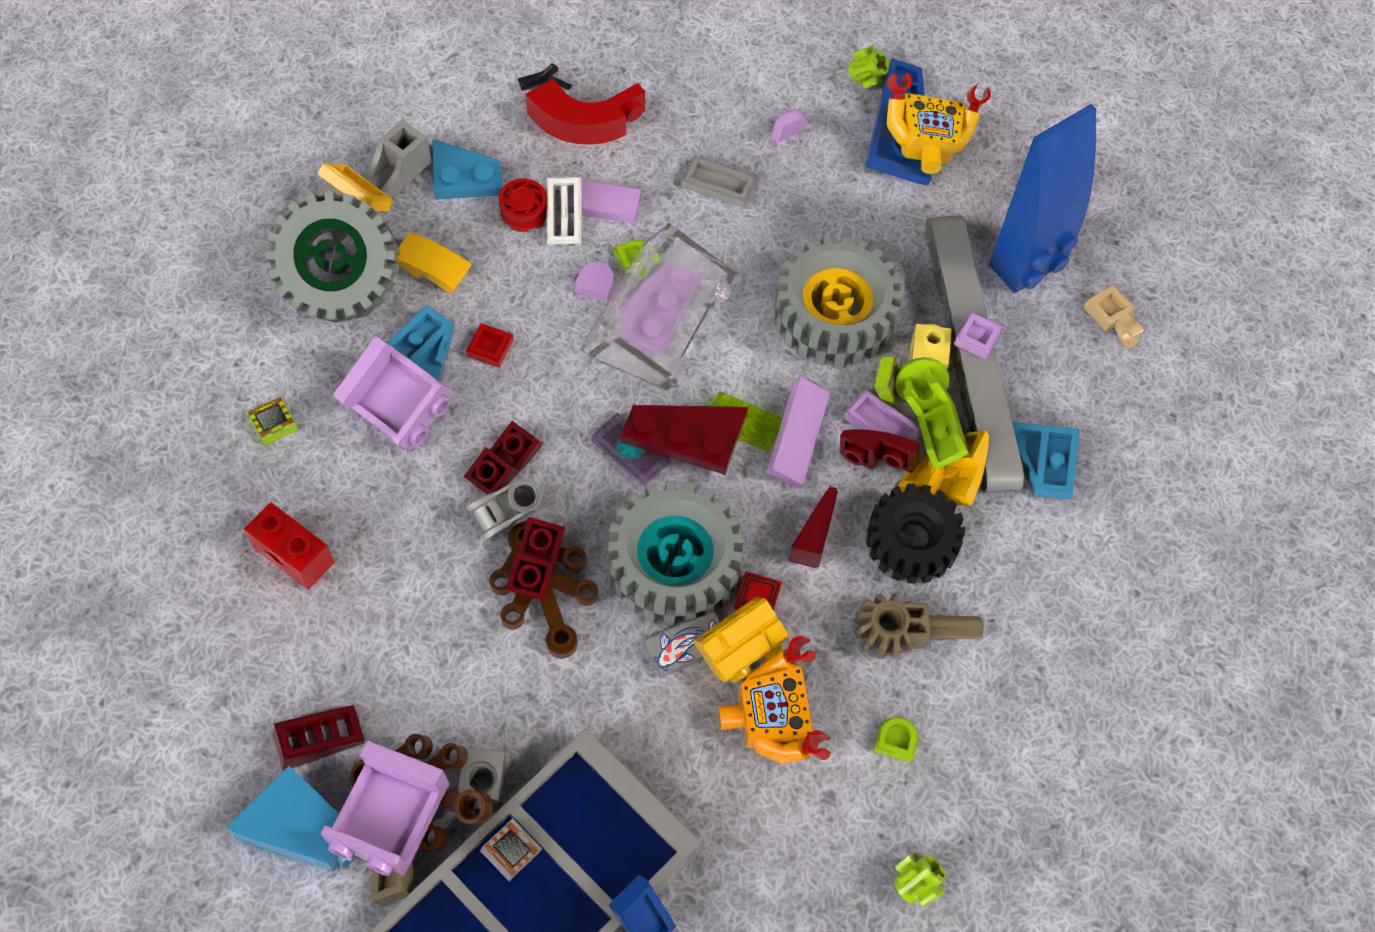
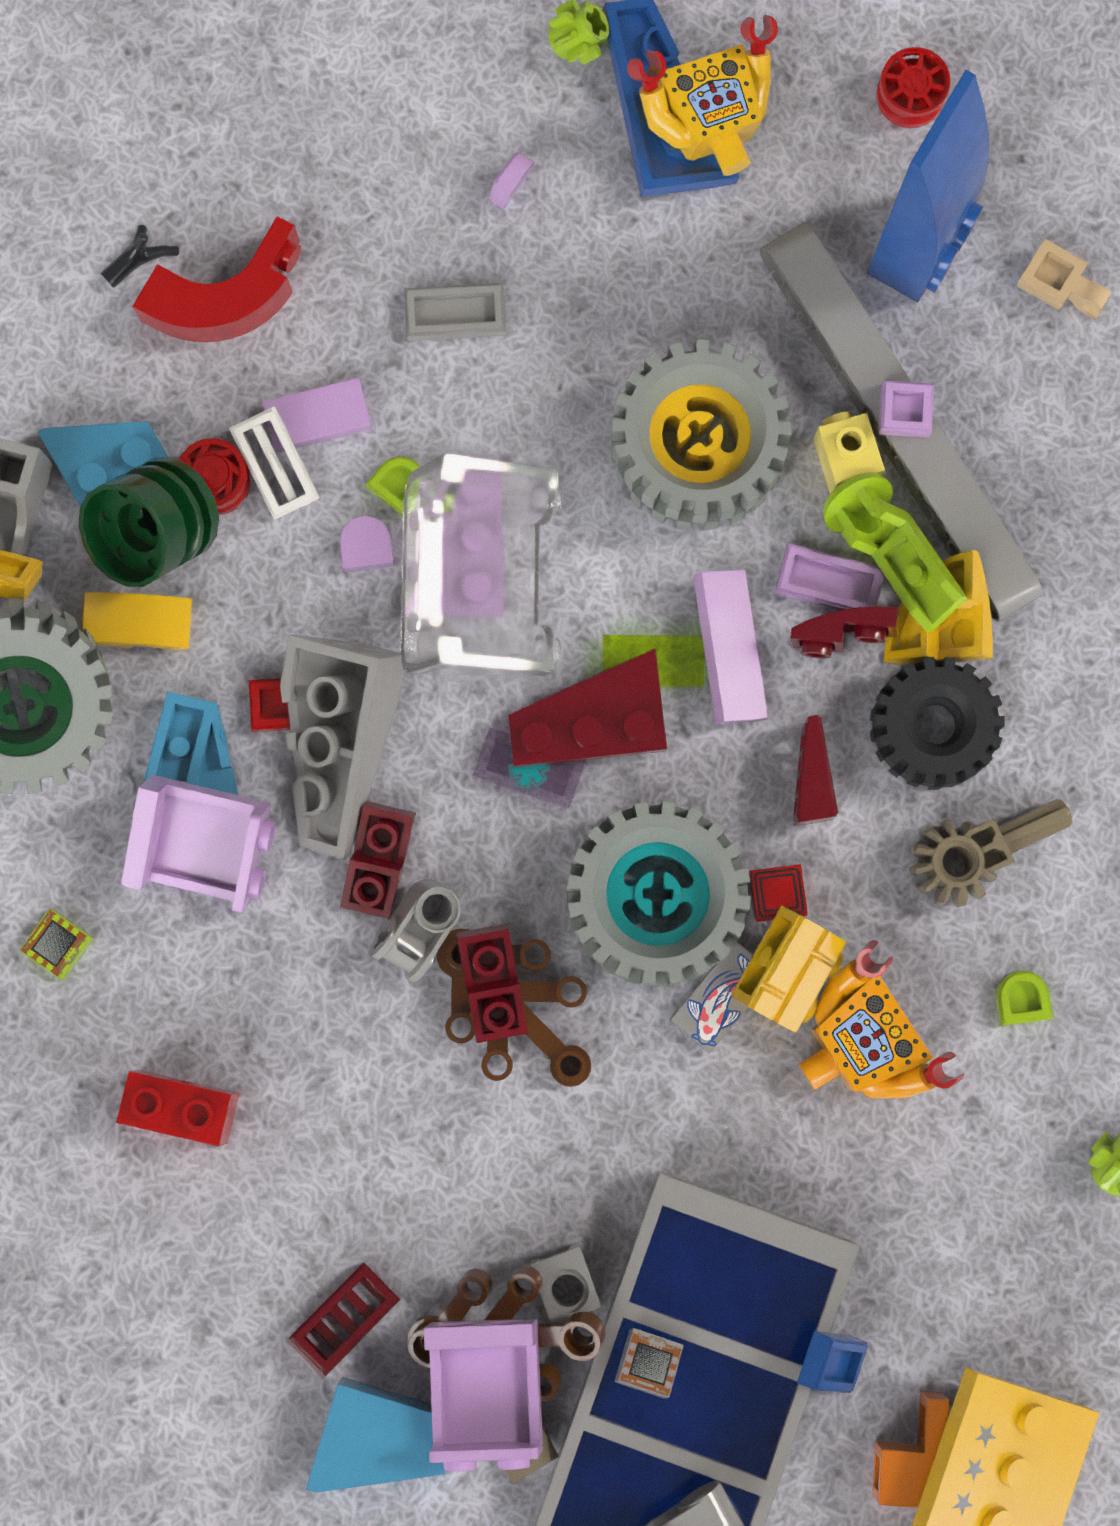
camera: 20 degrees left, 20 degrees up
(469, 201) = (148, 521): none -> dark green wheel
(526, 364) = (339, 720): none -> light grey wedge
(886, 380) = (810, 521): lime tile -> none
(1048, 458) = (1057, 536): dark azure wing -> none

